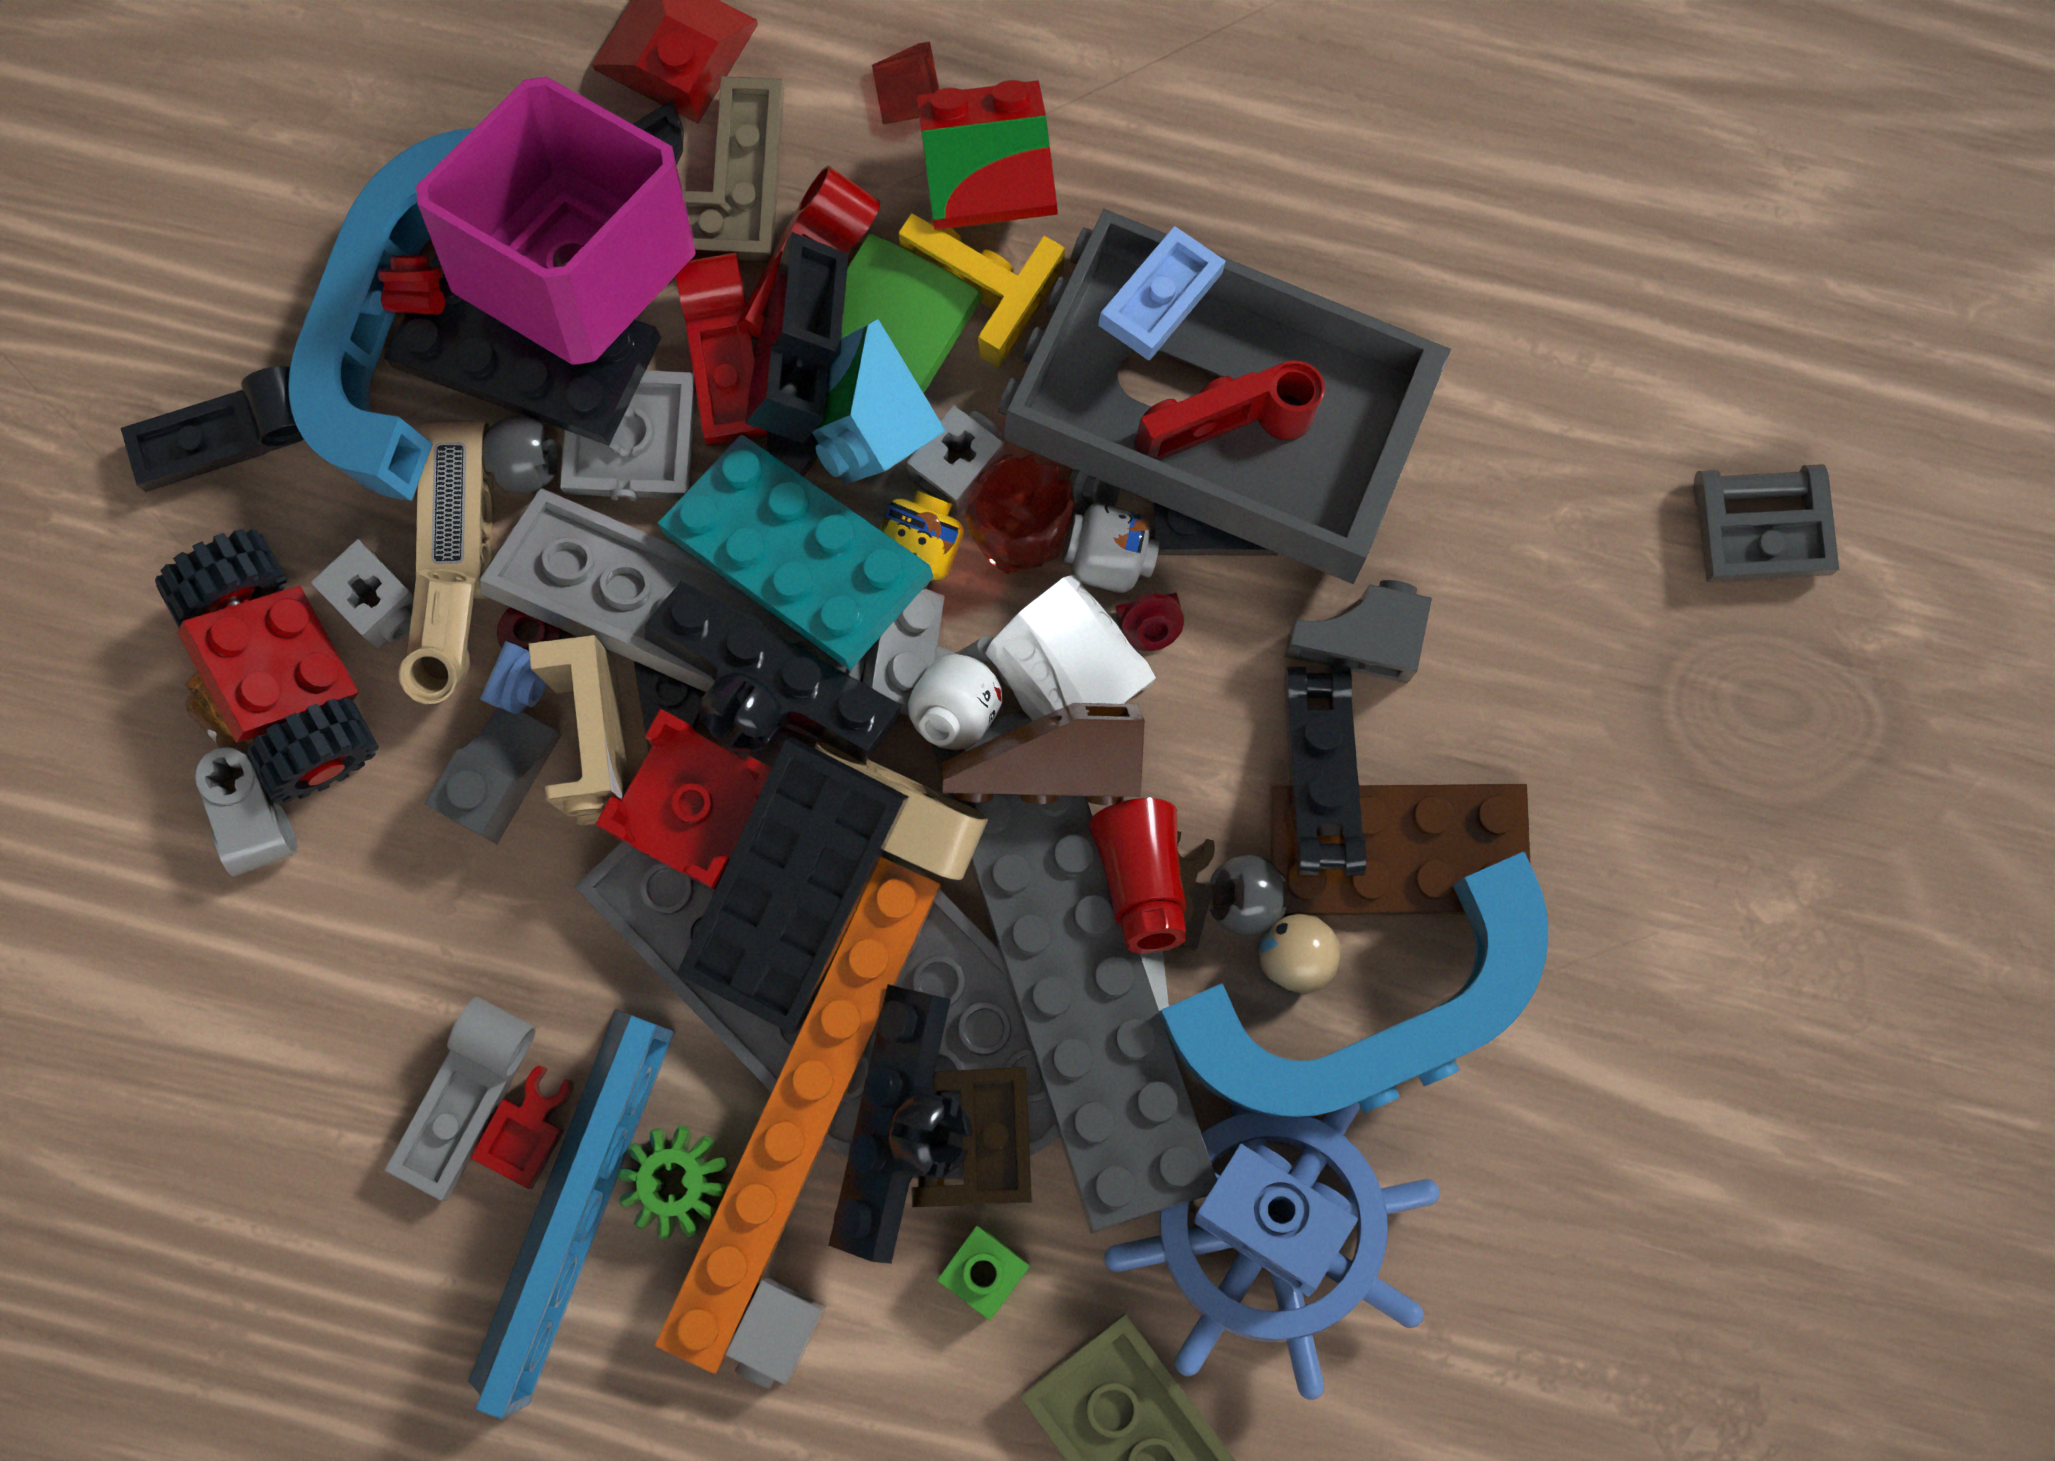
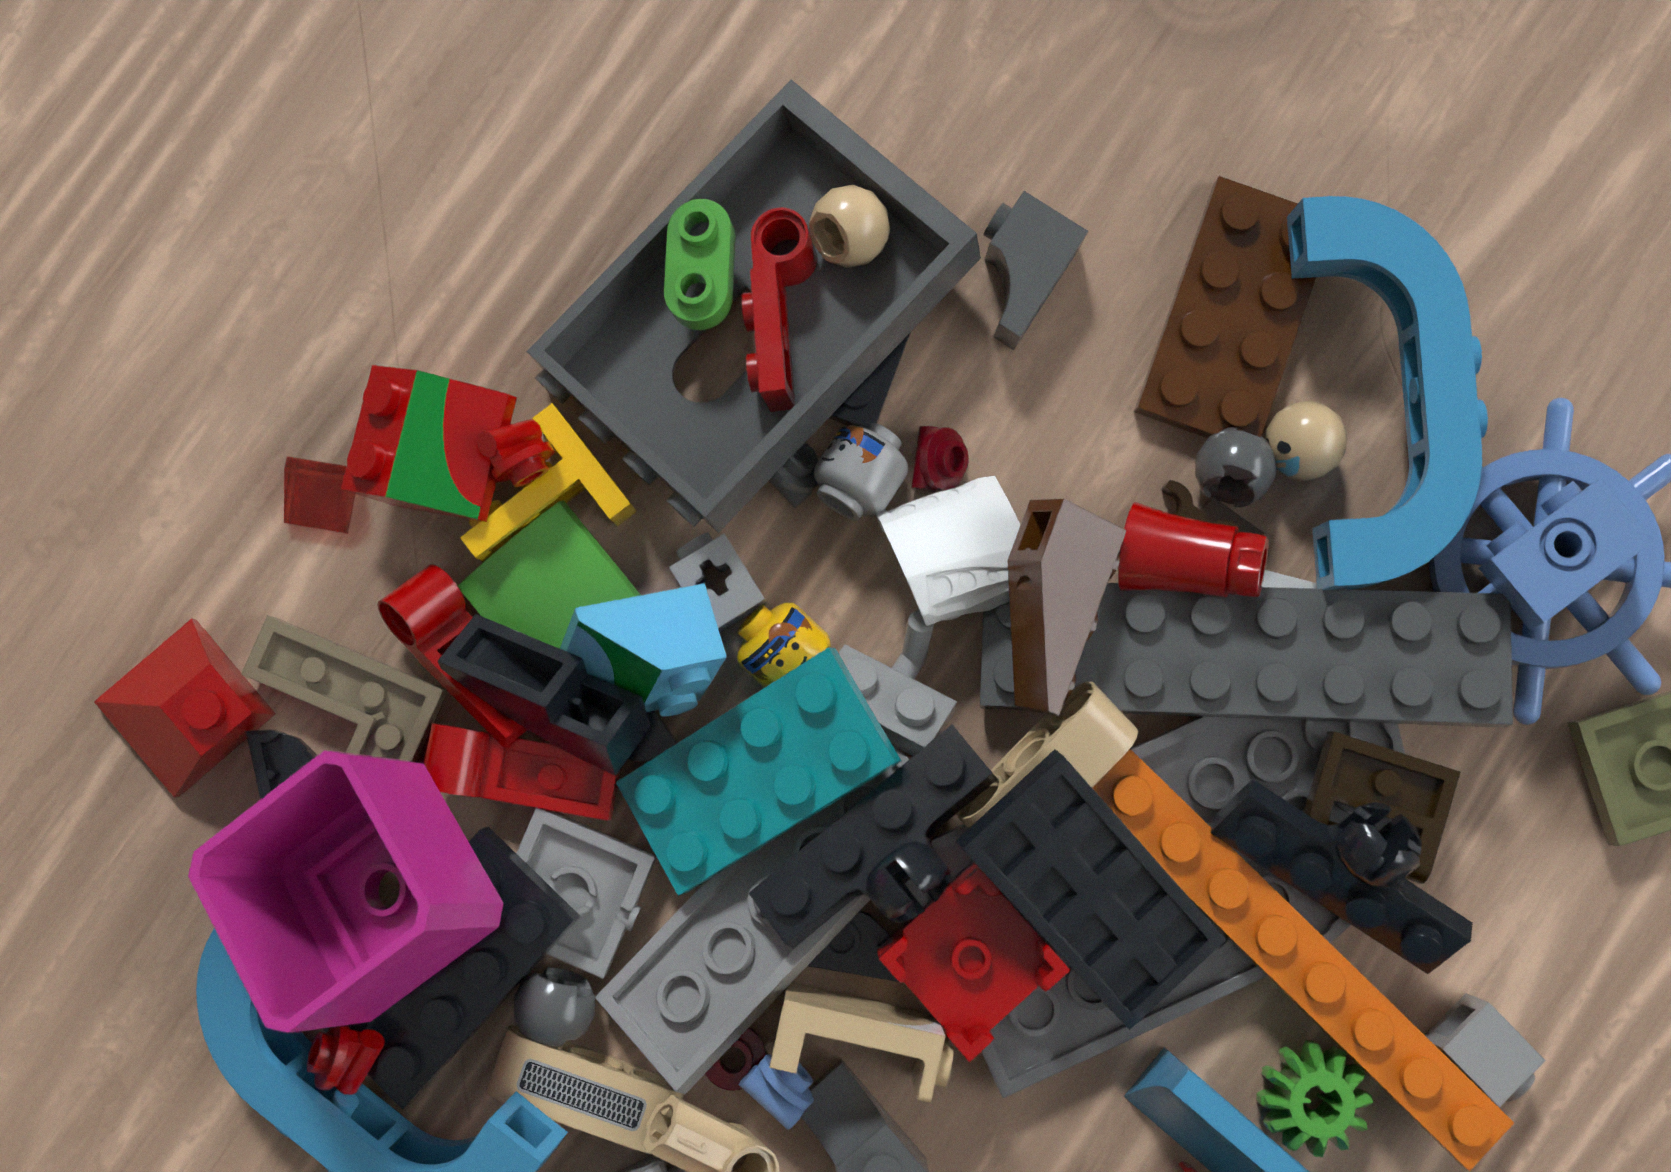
camera: 70 degrees left, 5 degrees up
(956, 698) = (963, 671): white head -> none
(1006, 230) = (516, 452): none -> red plate
(1008, 1265) = (1473, 834): bright green plate -> none
(1019, 512) = (795, 542): clear red hair -> none
(1161, 293) = (639, 326): light blue plate -> none
(1246, 327) = (700, 260): none -> bright green plate
(1324, 772) = (1149, 354): black plate -> none
(1332, 449) = (849, 226): none -> tan piece

